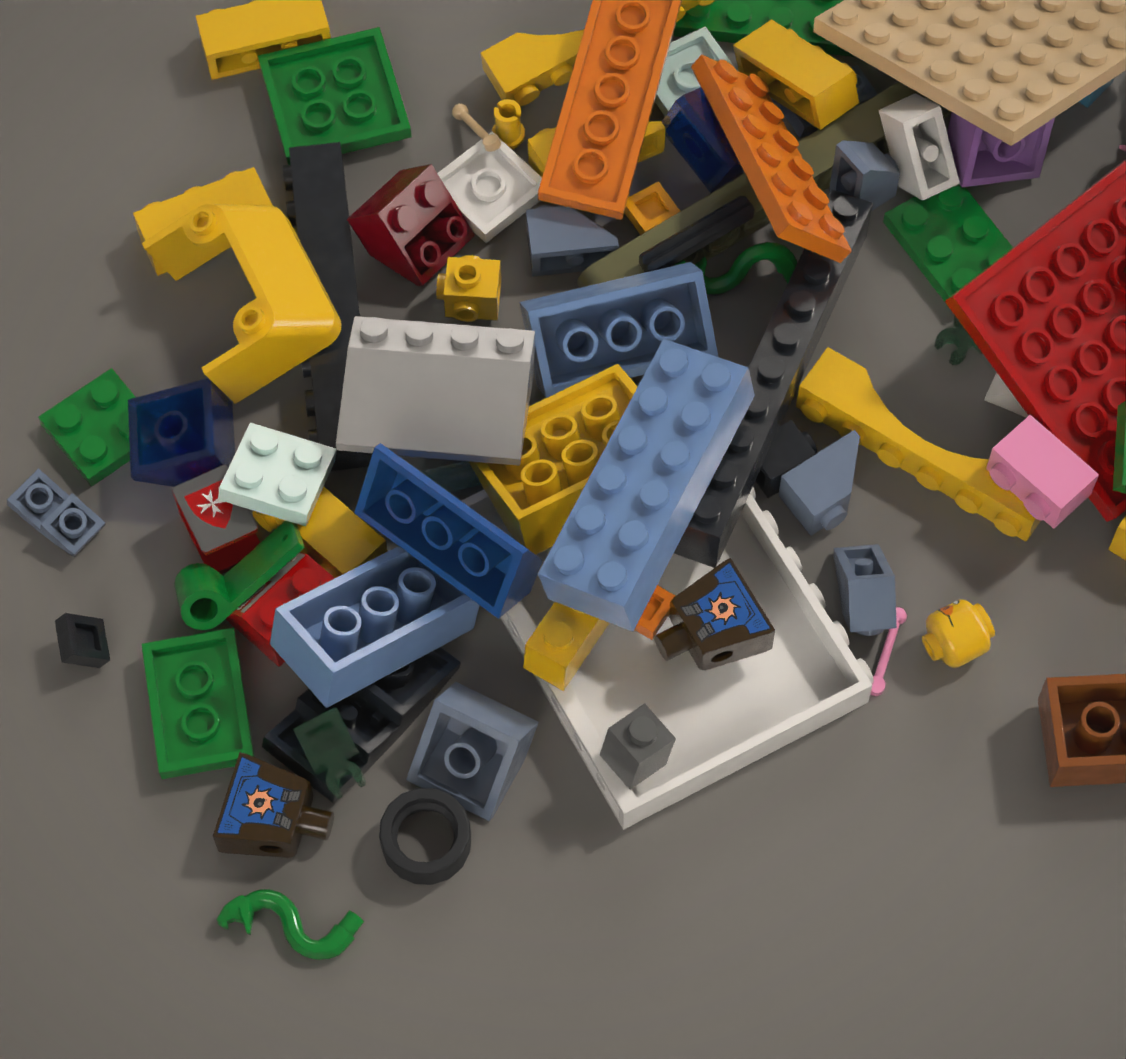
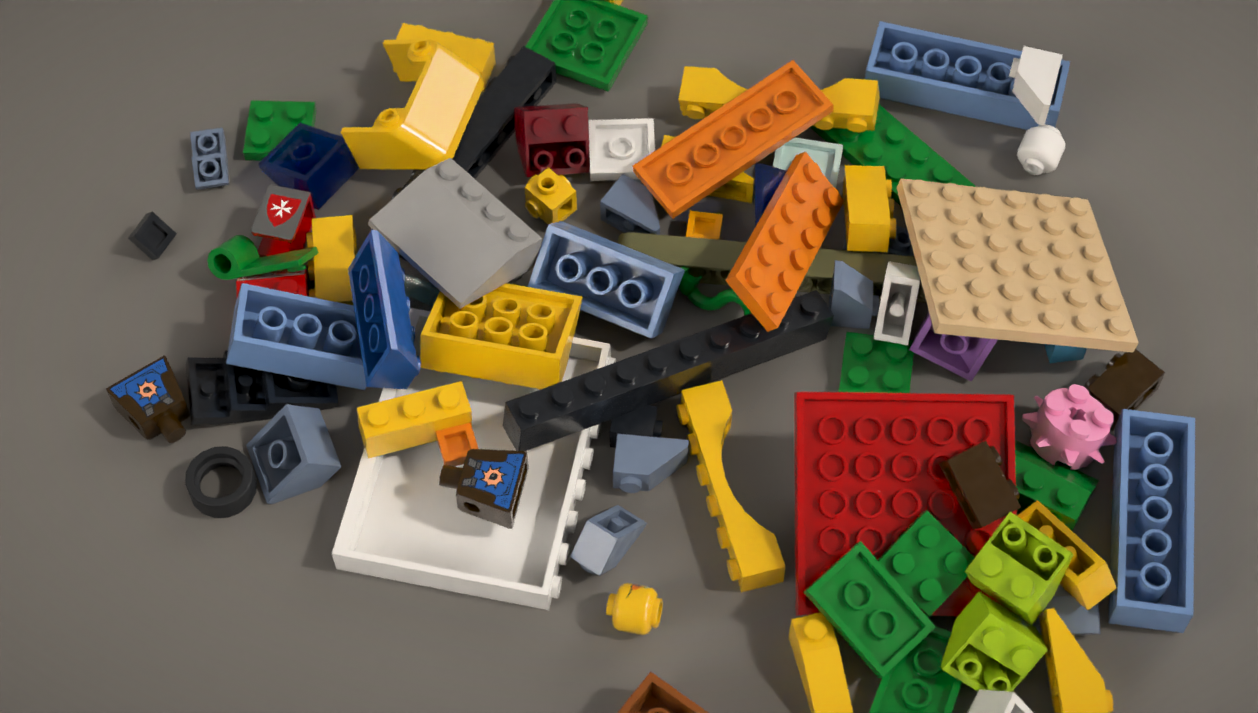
camera: 40 degrees right, 5 degrees down
(197, 702) = (177, 315): green plate -> none
(277, 474) = (329, 217): light aqua plate -> none
(328, 747) = (210, 388): clear green plate -> none
(333, 944) = (117, 502): green animal -> none
(490, 142) = (643, 121): tan hinge -> none
(508, 123) = (666, 120): yellow pin -> none
(637, 746) = (369, 518): dark grey brick -> none
(647, 484) = (503, 364): medium blue brick -> none
(697, 235) = (697, 257): black axle -> none
(879, 683) = (562, 602): bright pink hinge -> none
(1041, 472) = (771, 548): bright pink brick -> none

